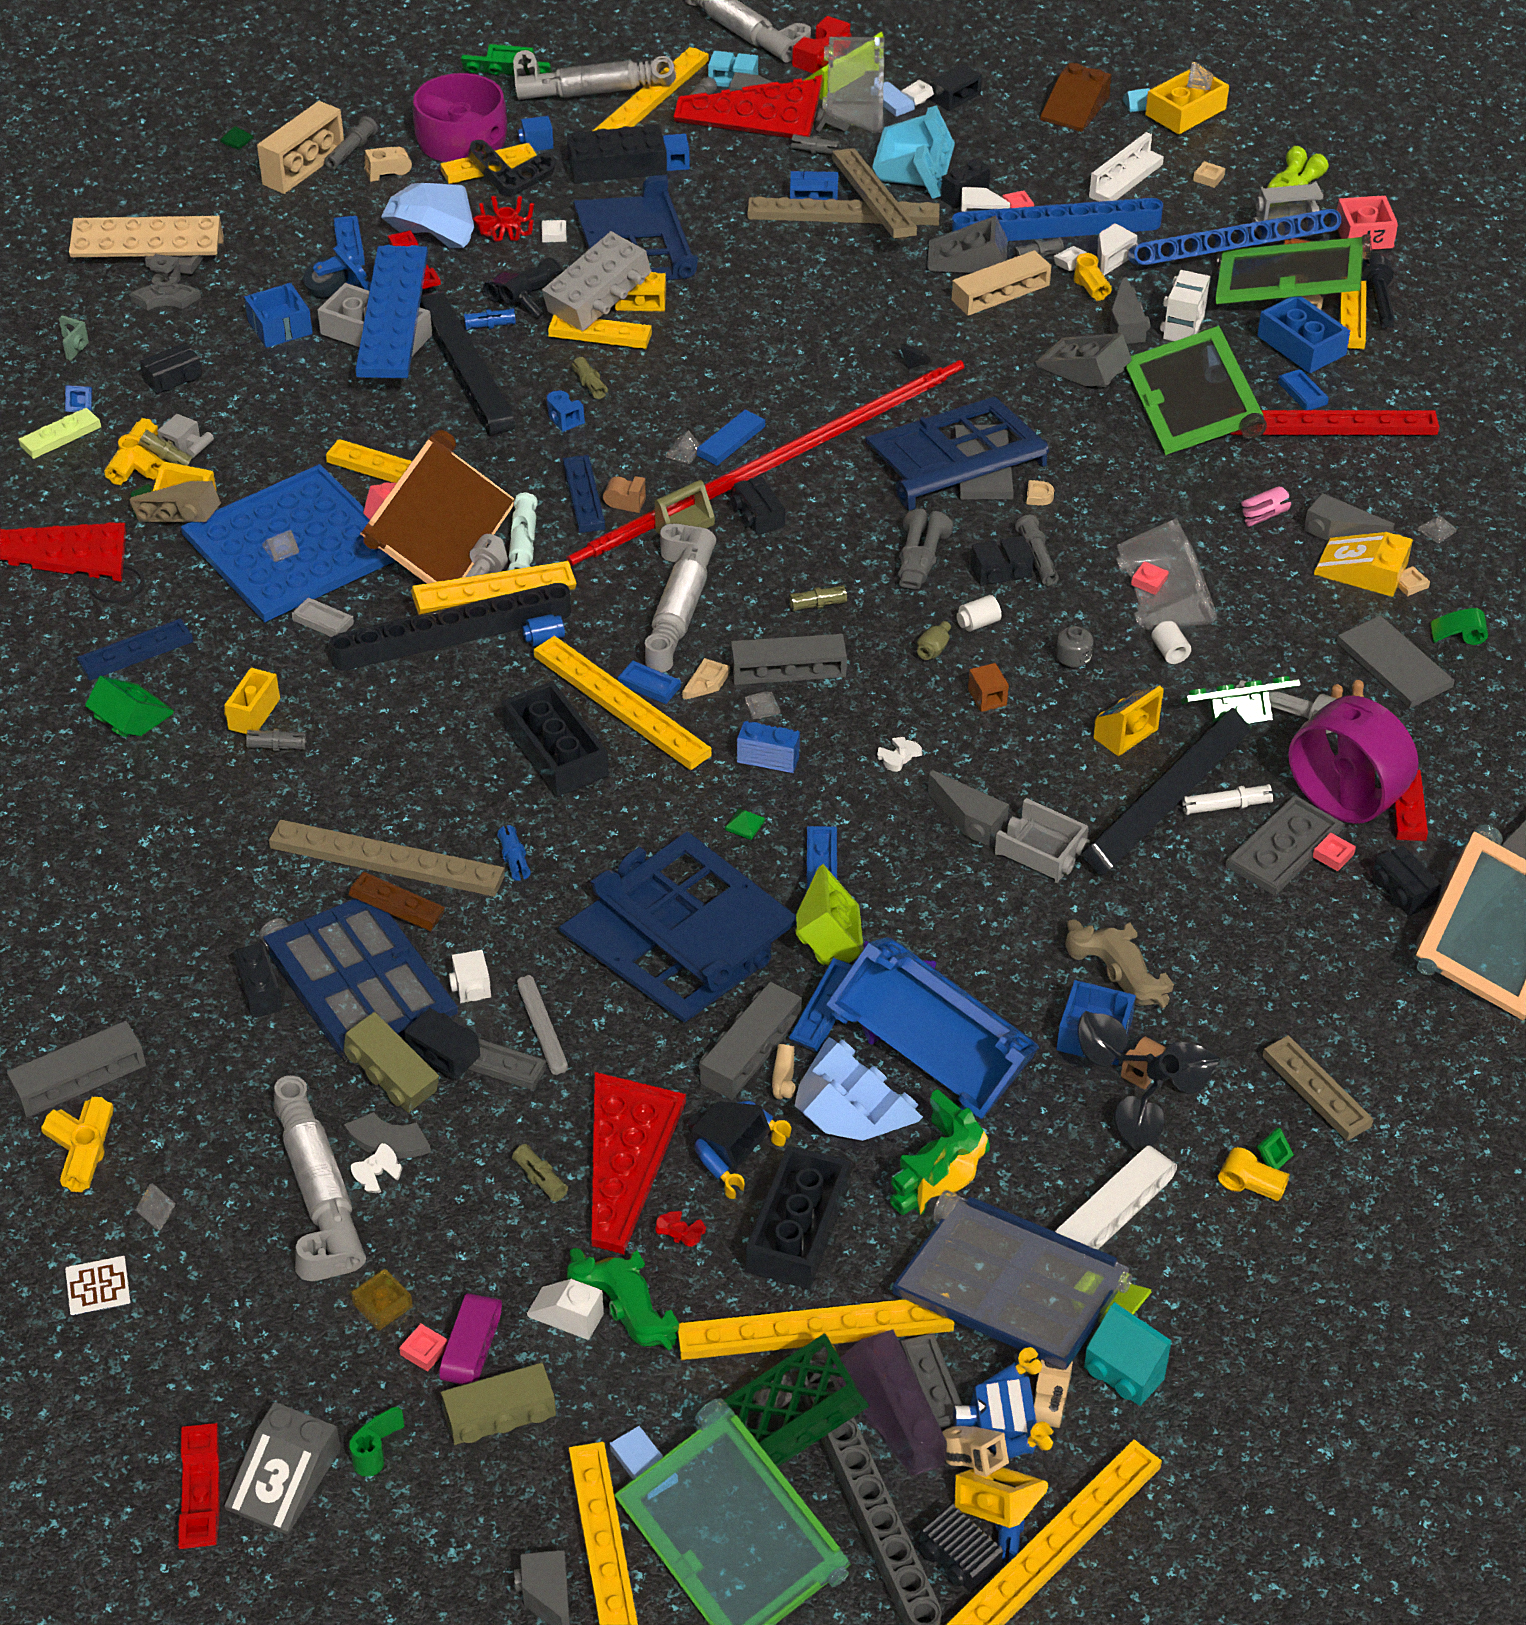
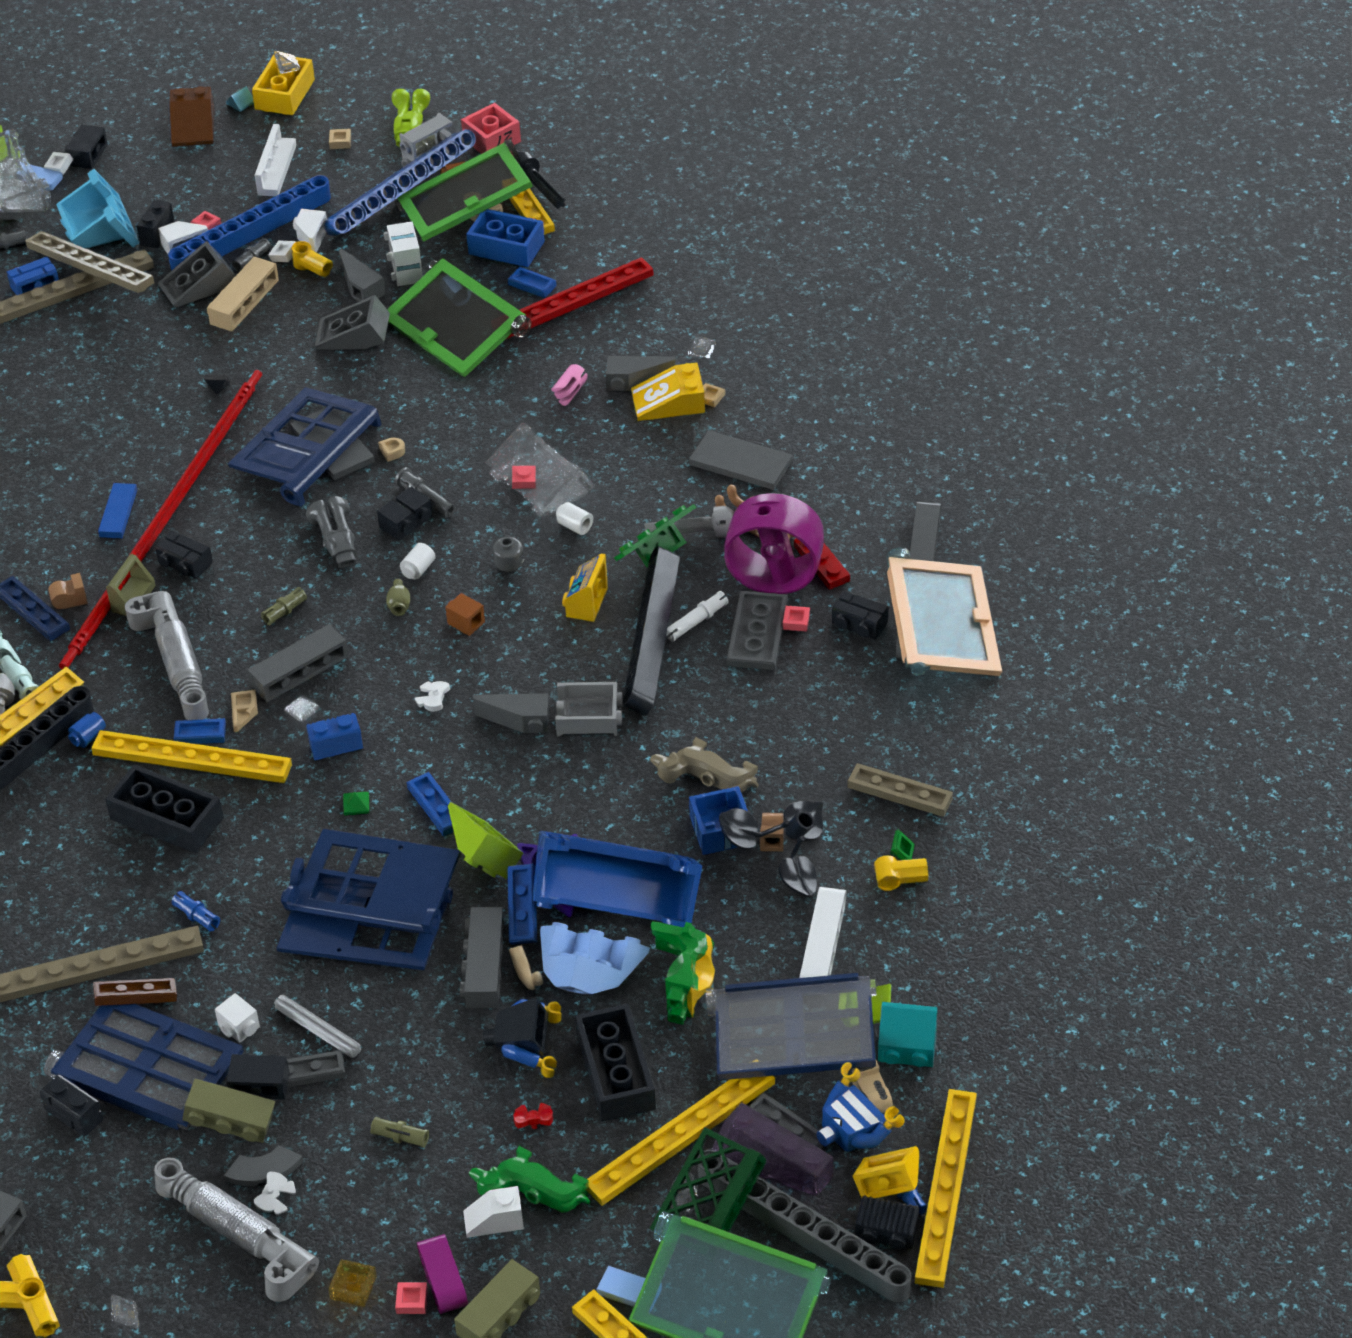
camera: 30 degrees left, 0 degrees up
(628, 1146) = (450, 1076): red wing -> none
(684, 448) = (86, 535): clear slope -> none
(969, 1447) = (853, 1152): tan leg -> none
(1468, 621) = (771, 408): green panel -> none

